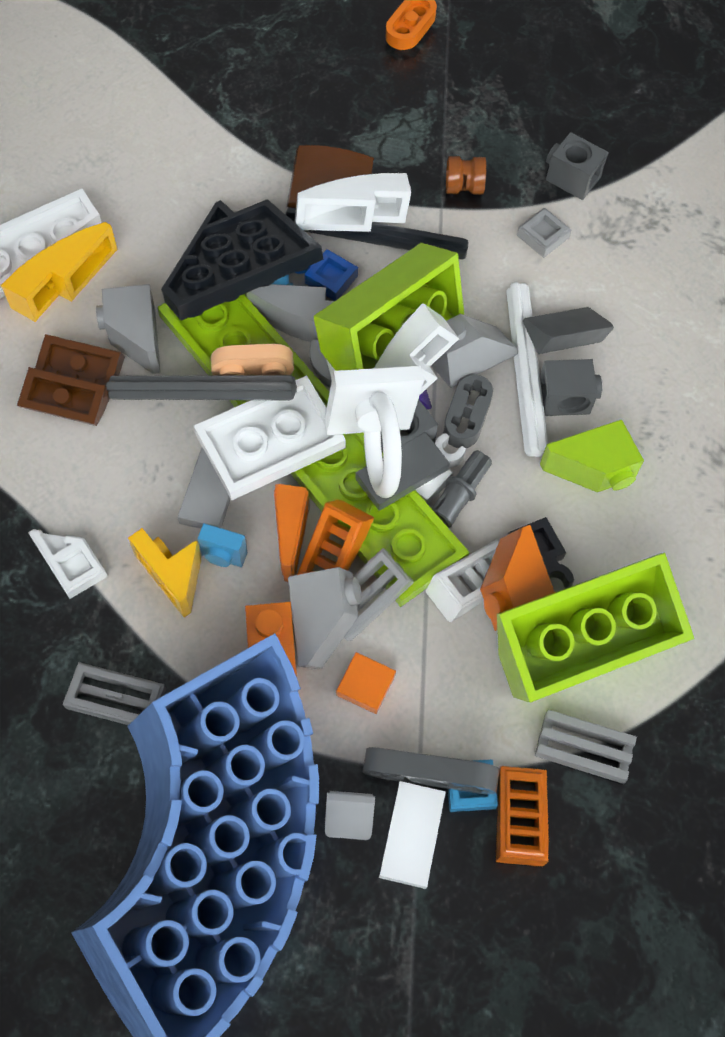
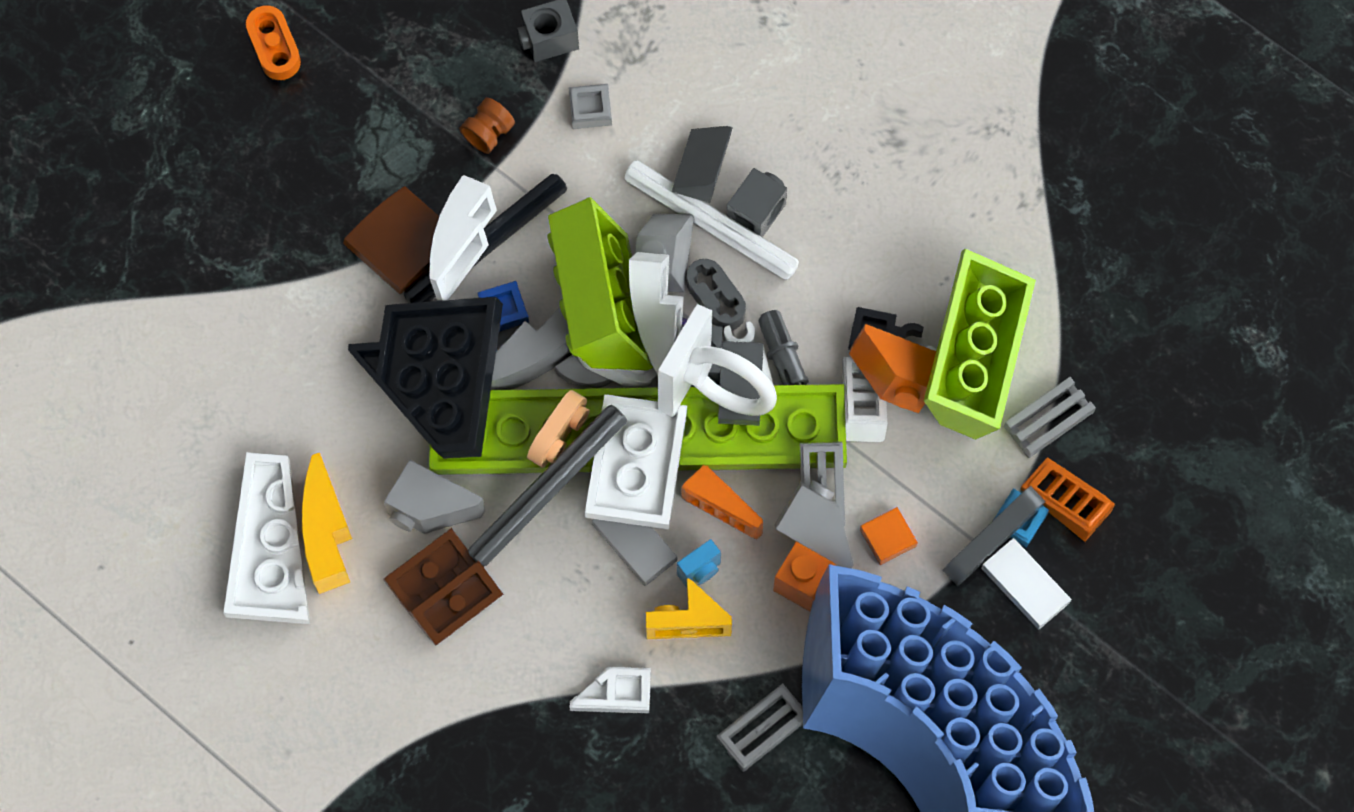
camera: 50 degrees left, 5 degrees up
(327, 525) = (754, 449): orange slope -> none
(349, 815) = (985, 613): light grey slope -> none
(595, 458) = (835, 231): lime slope -> none

